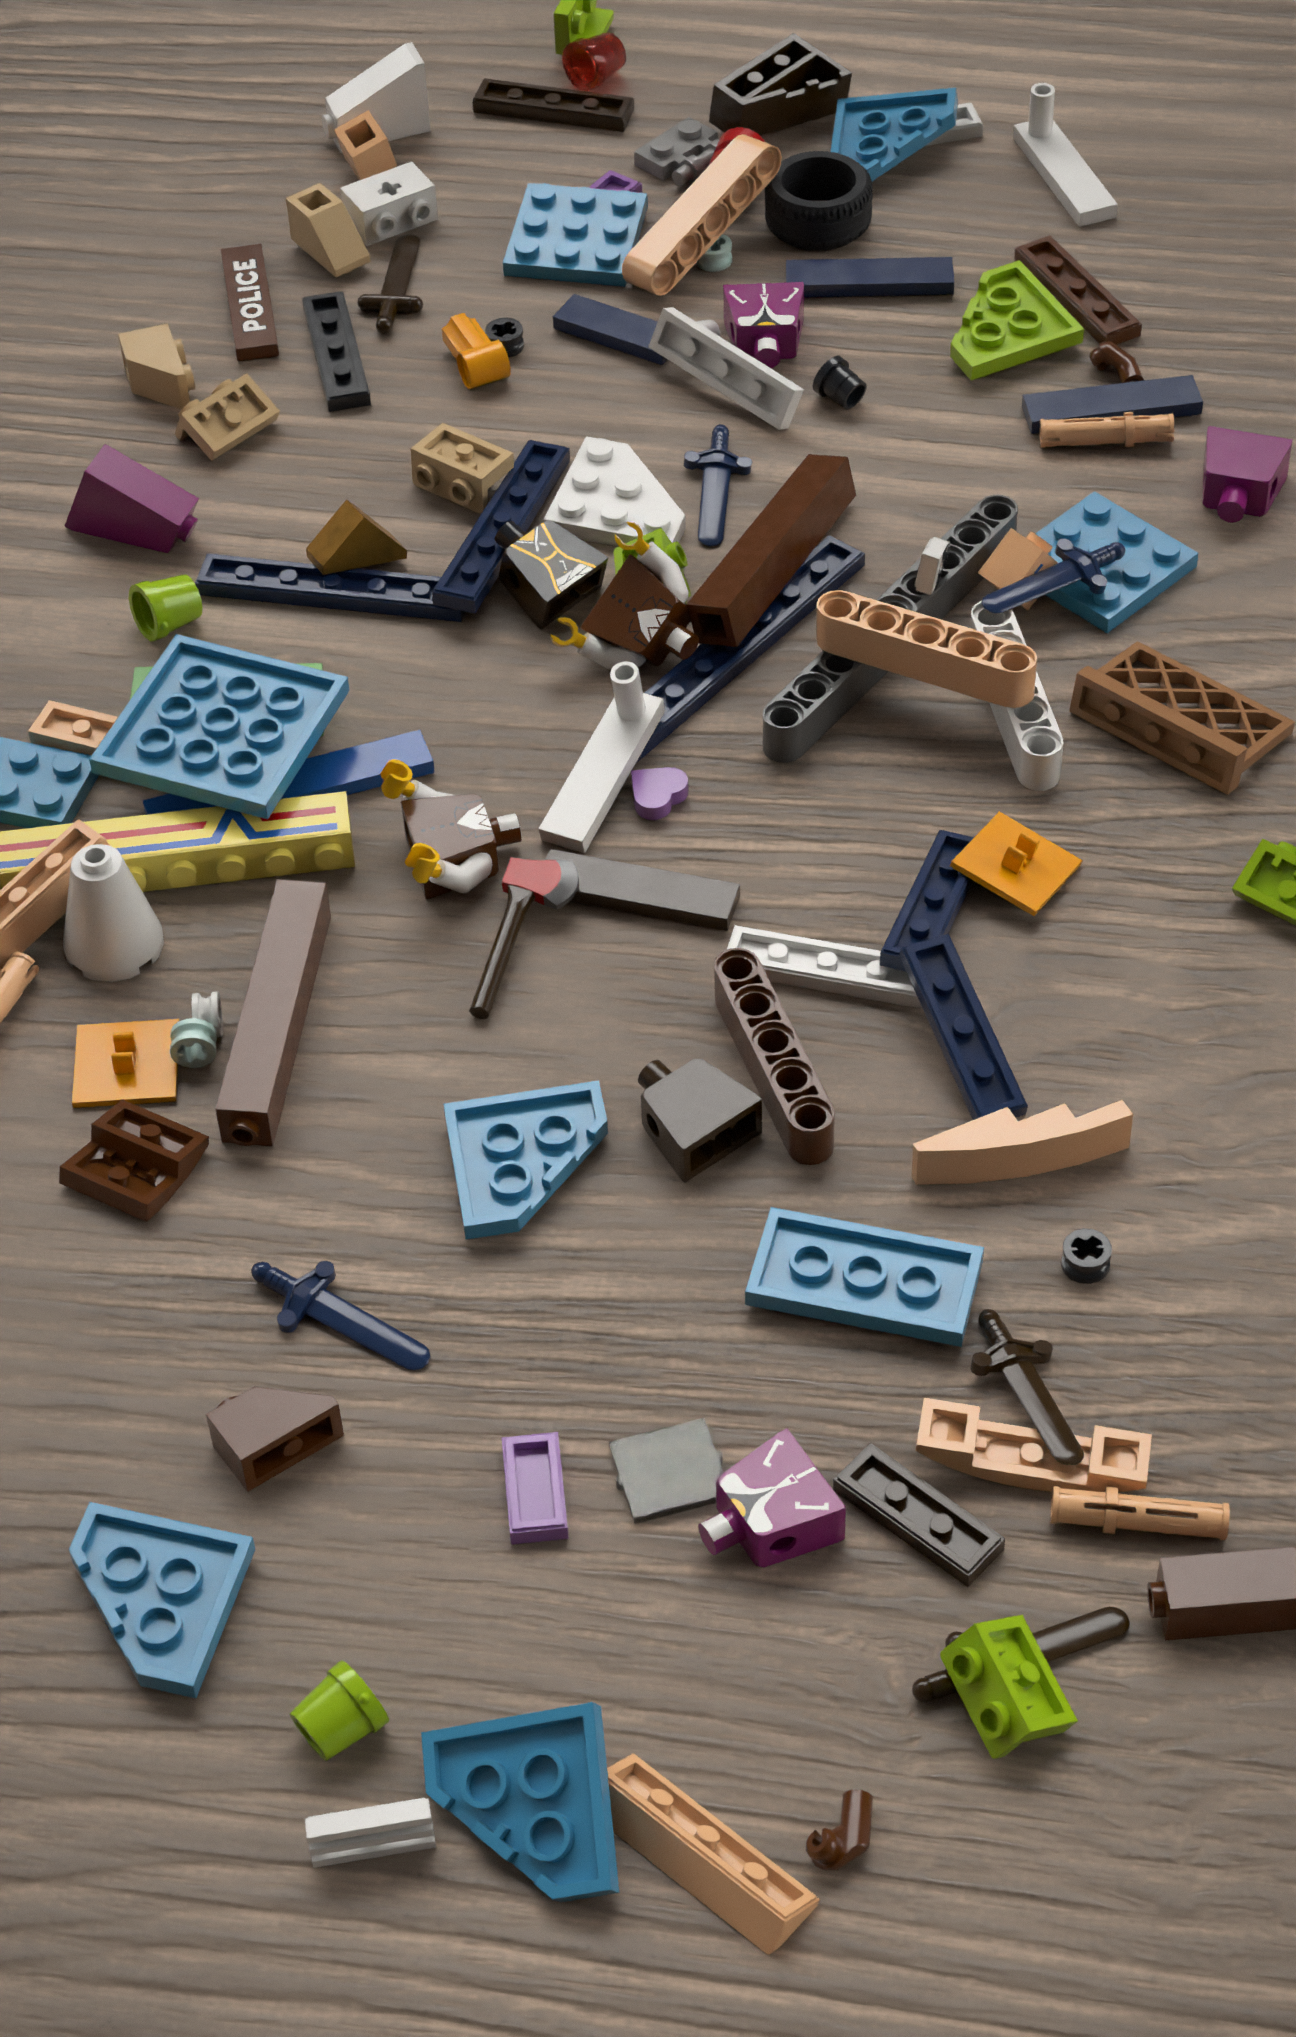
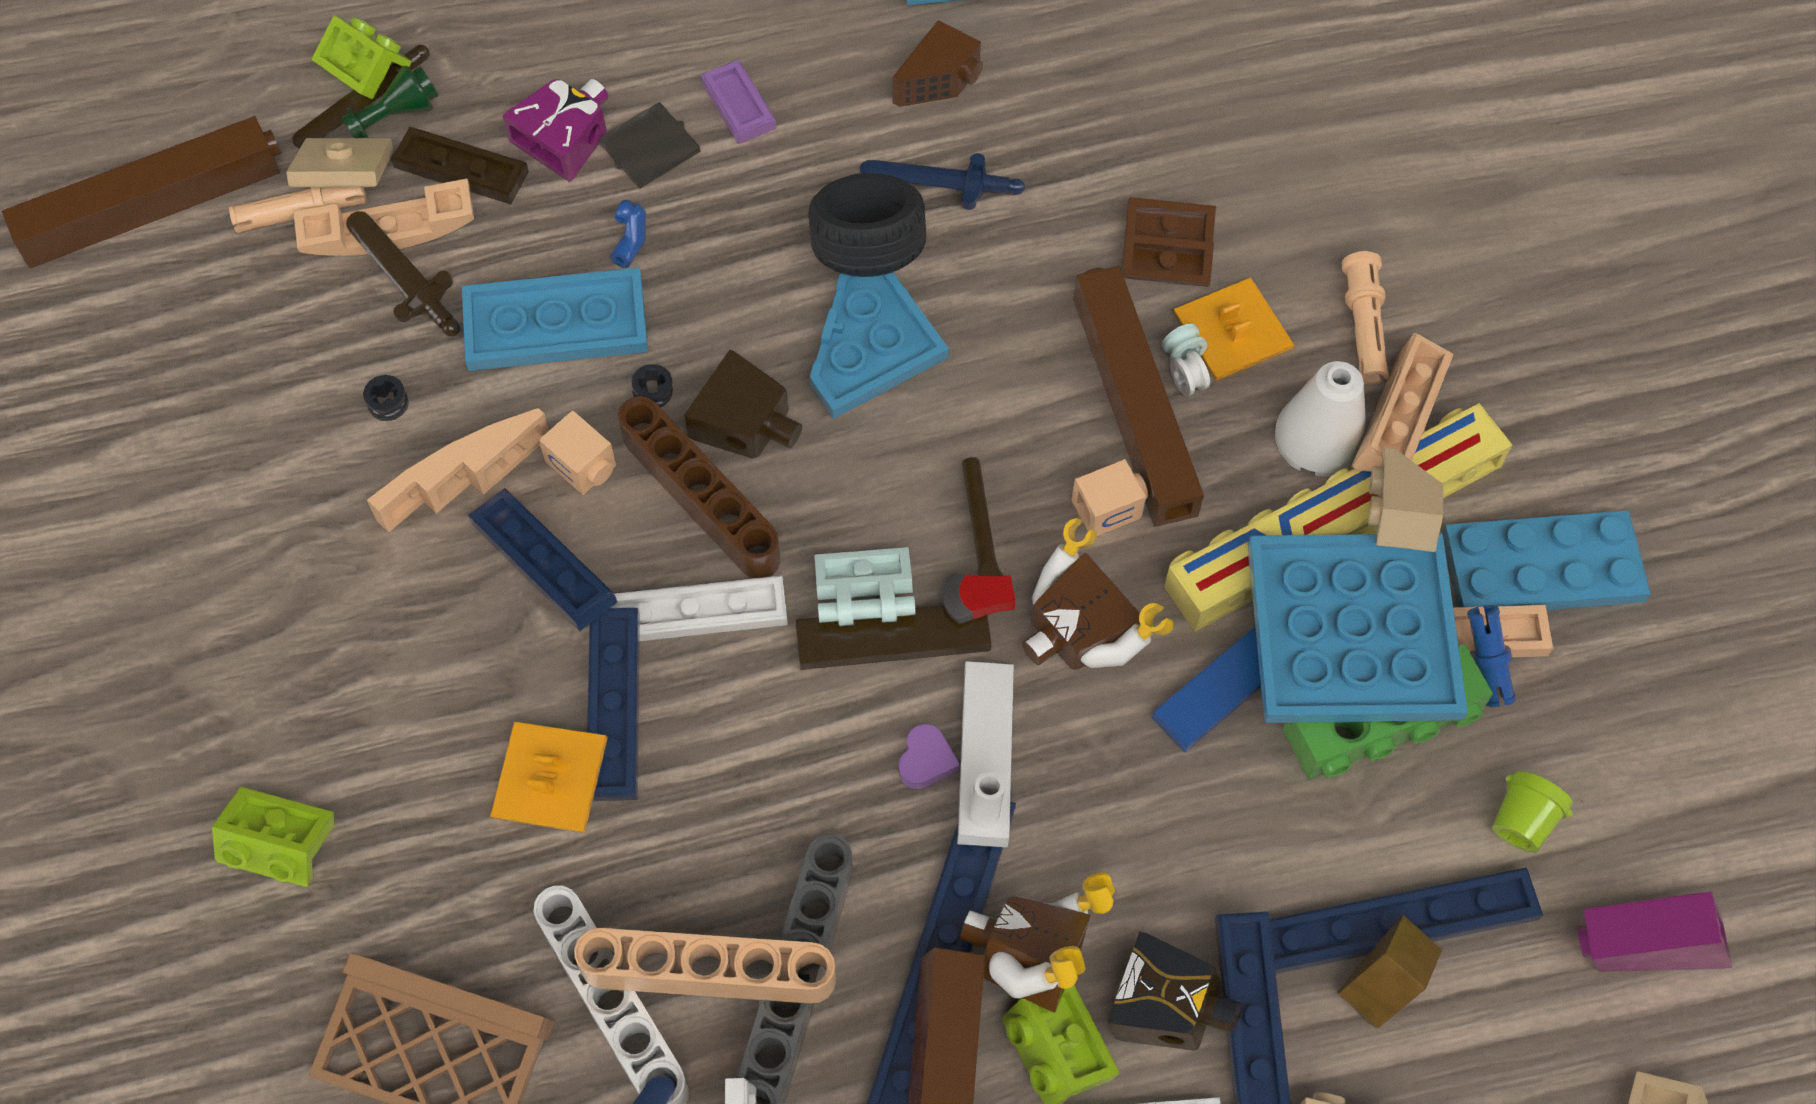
camera: 155 degrees right, 15 degrees up
(108, 774) = (1407, 504): none -> tan slope
(109, 697) = (1492, 653): none -> blue pin
(363, 927) = (1109, 497): none -> light nougat brick
(429, 1193) = (867, 224): none -> black tyre
(644, 932) = (863, 575): none -> light aqua plate
(734, 1353) = (634, 236): none -> blue arm
(792, 1190) = (655, 373): none -> black bush
(888, 1121) = (578, 453): none -> light nougat brick
(955, 1607) = (406, 94): none -> dark green piece
(1071, 1531) = (340, 162): none -> tan plate

